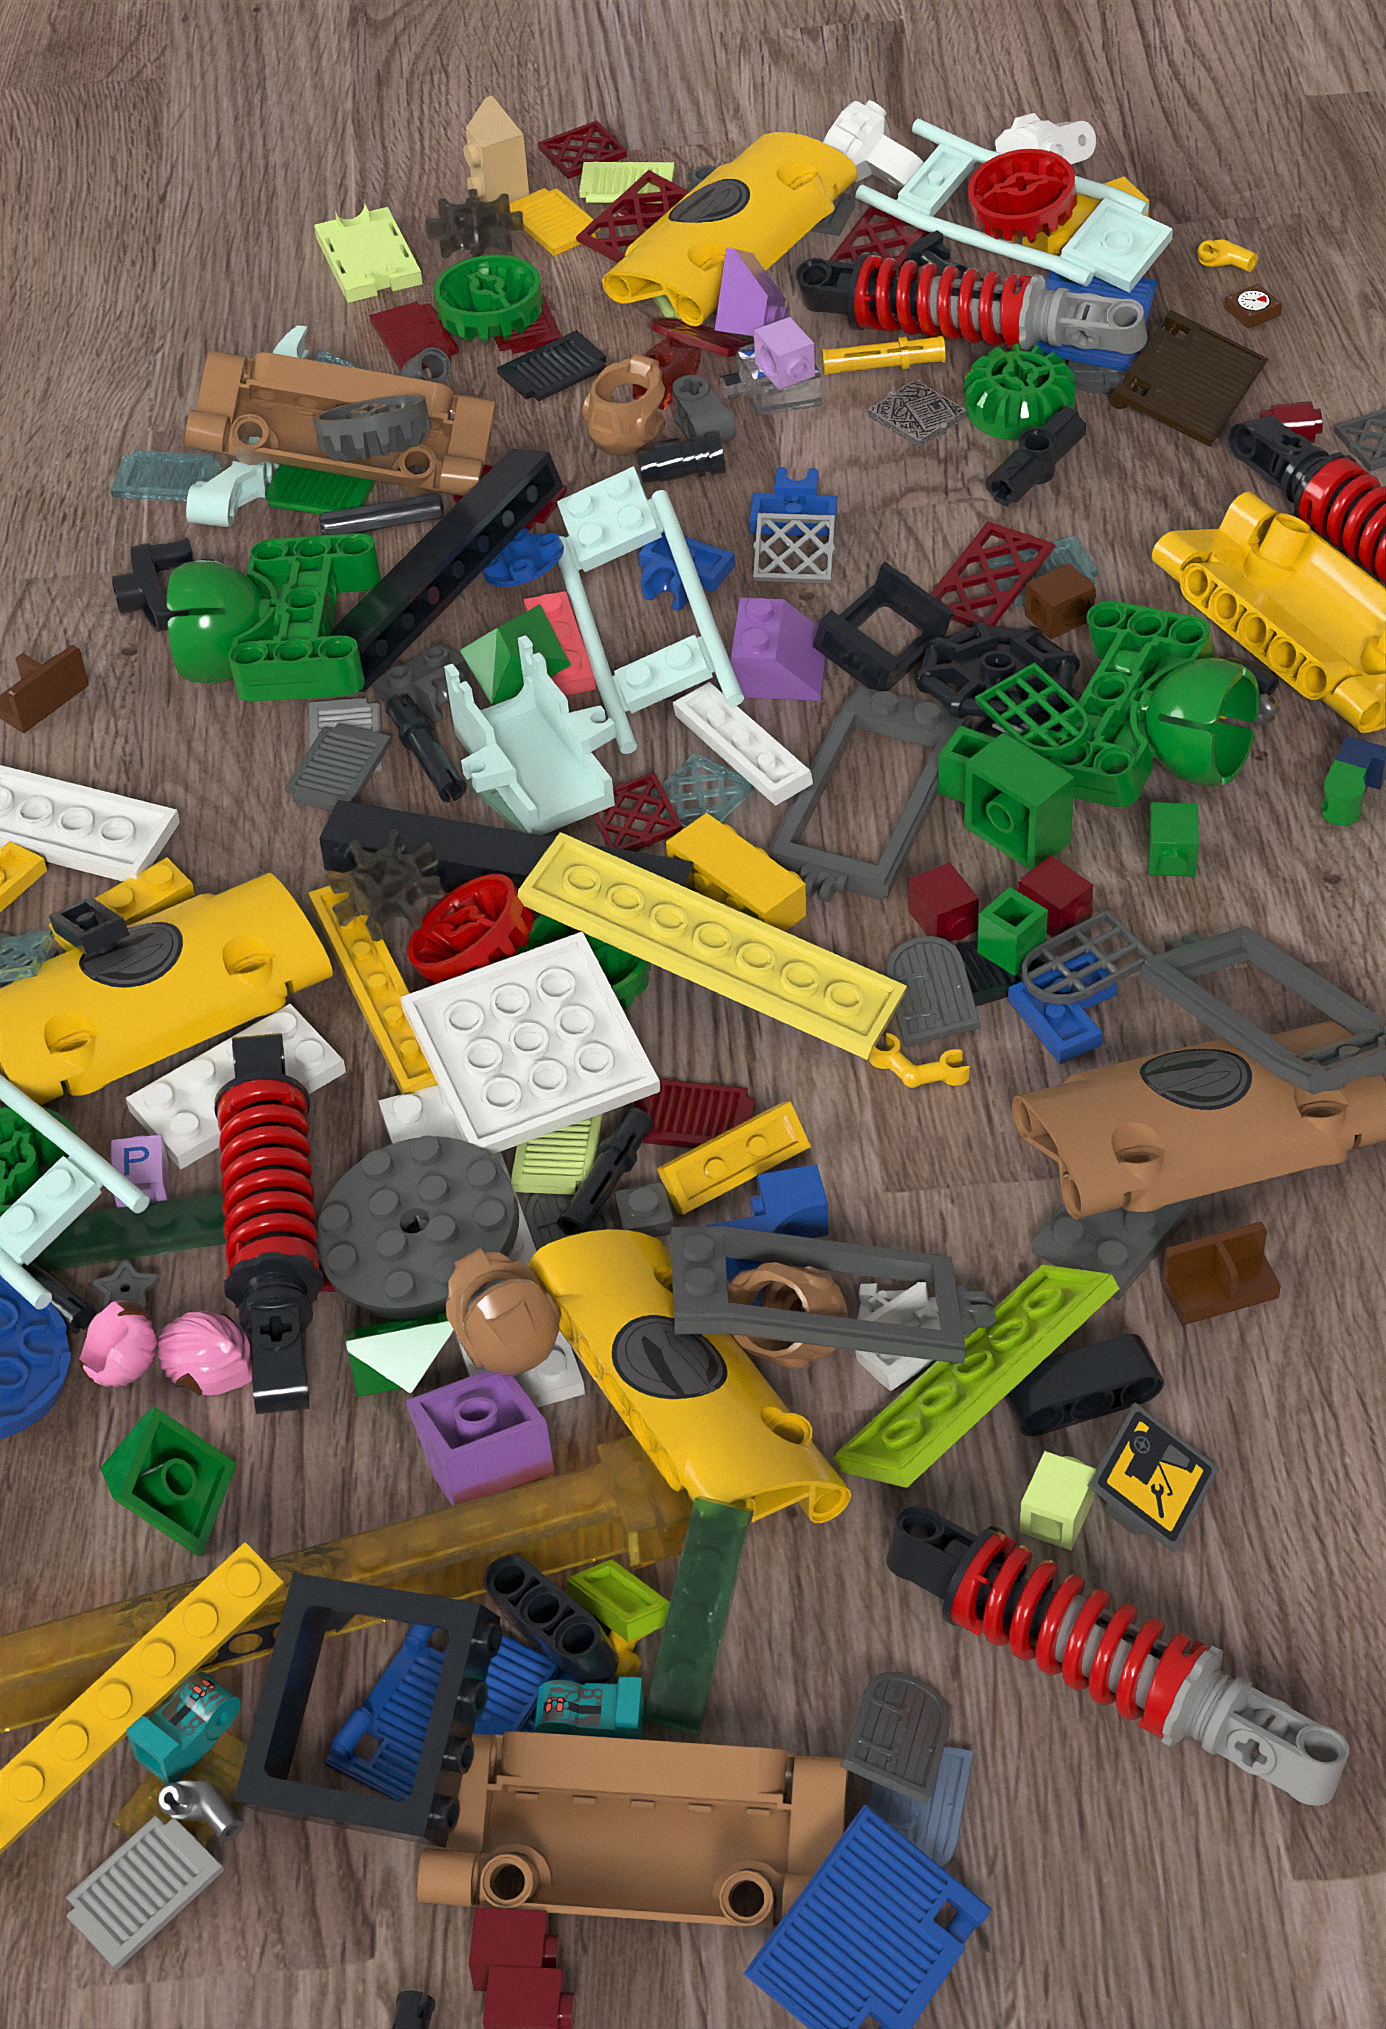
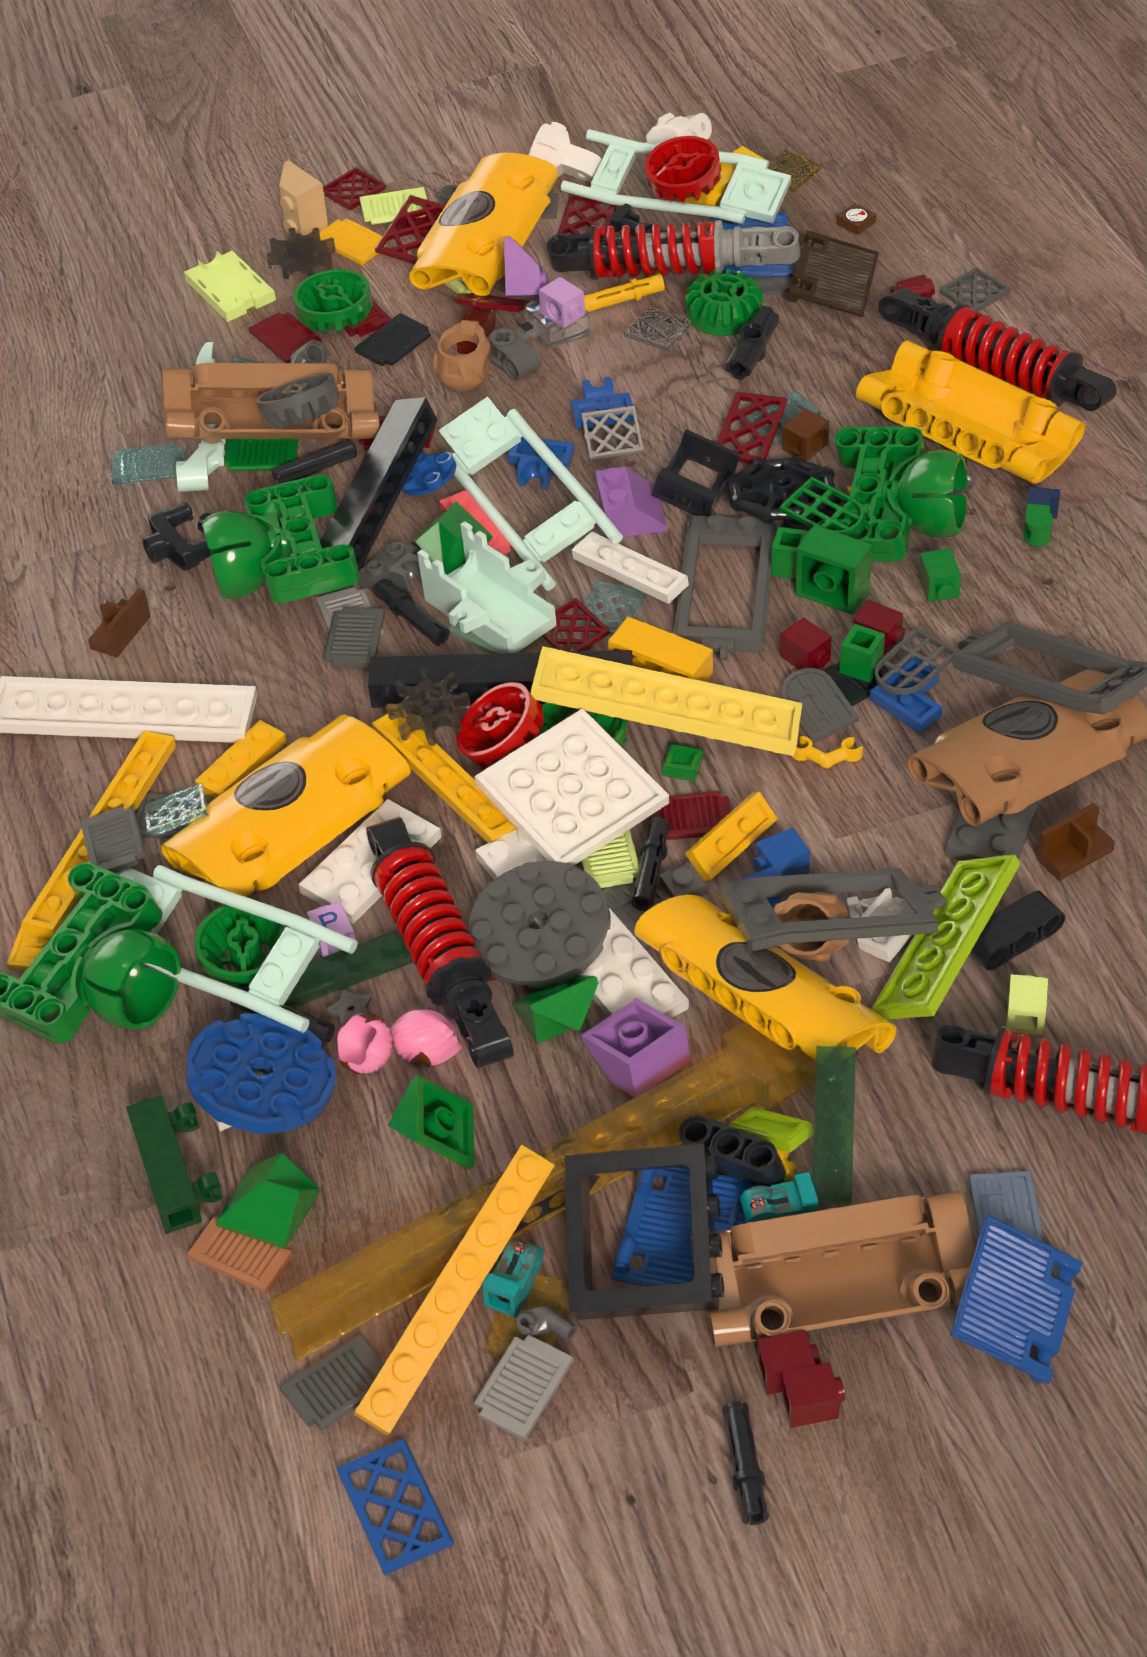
camera: 15 degrees left, 0 degrees up
(89, 926) = (232, 774): black plate -> none
(510, 1323) = (640, 970): medium nougat helmet -> none
(675, 460) = (510, 387): black axle -> none
(712, 1036) = (683, 762): none -> green tile
(899, 1735) = (983, 1170): dark grey window -> none
(1152, 1479) = (1082, 978): piece -> none
(1191, 221) = (797, 166): none -> clear yellow piece
(1226, 253) = (822, 187): yellow arm -> none

